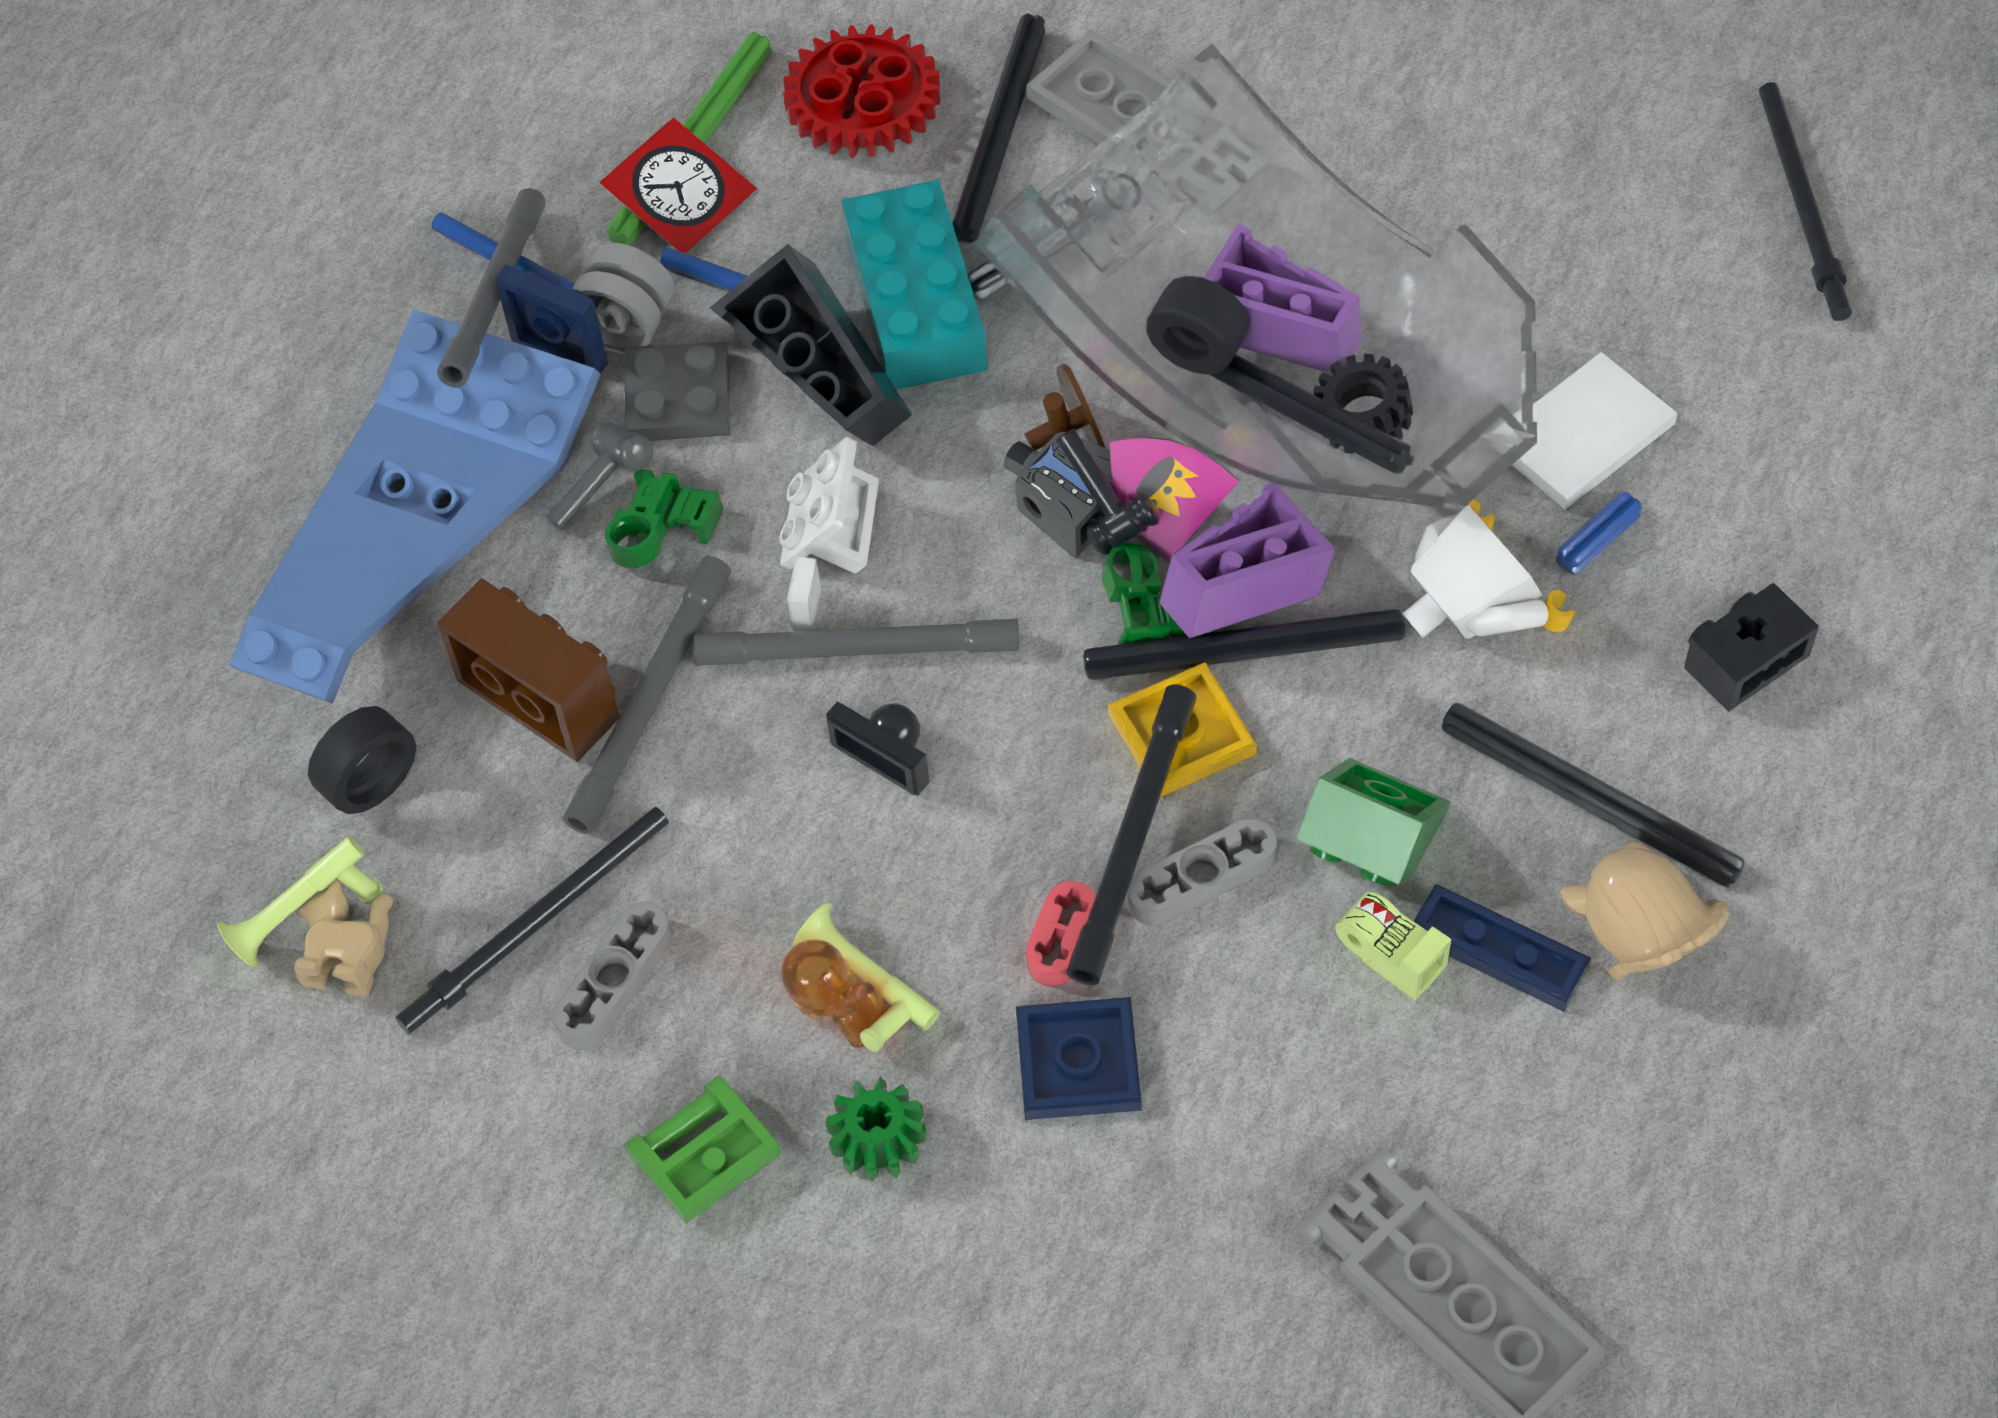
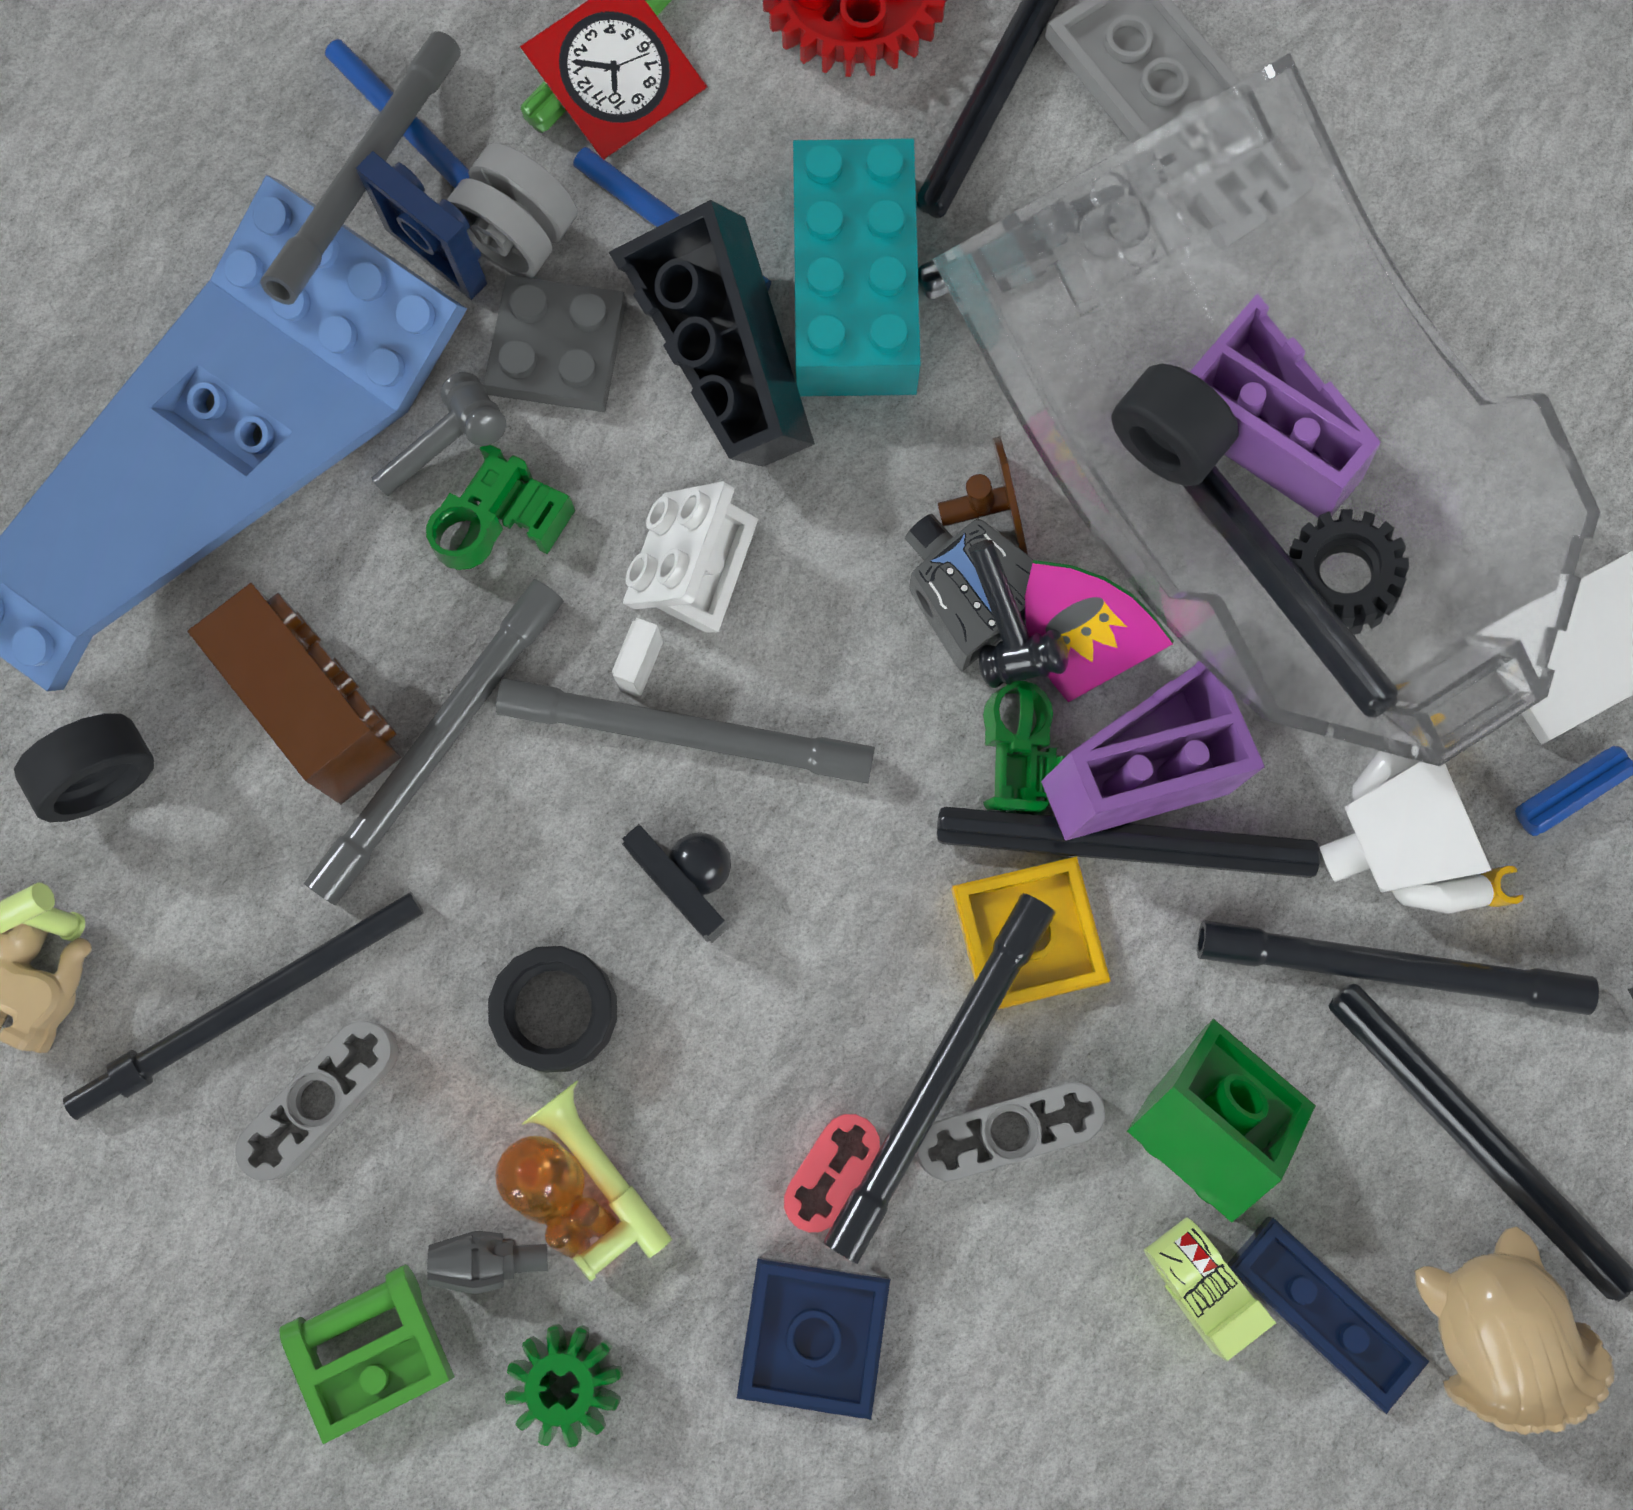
camera: 10 degrees right, 20 degrees up
(785, 1058) = (481, 1262): none -> dark grey piece
(792, 824) = (503, 1010): none -> black tyre
(1604, 677) = (1534, 987): none -> black piece

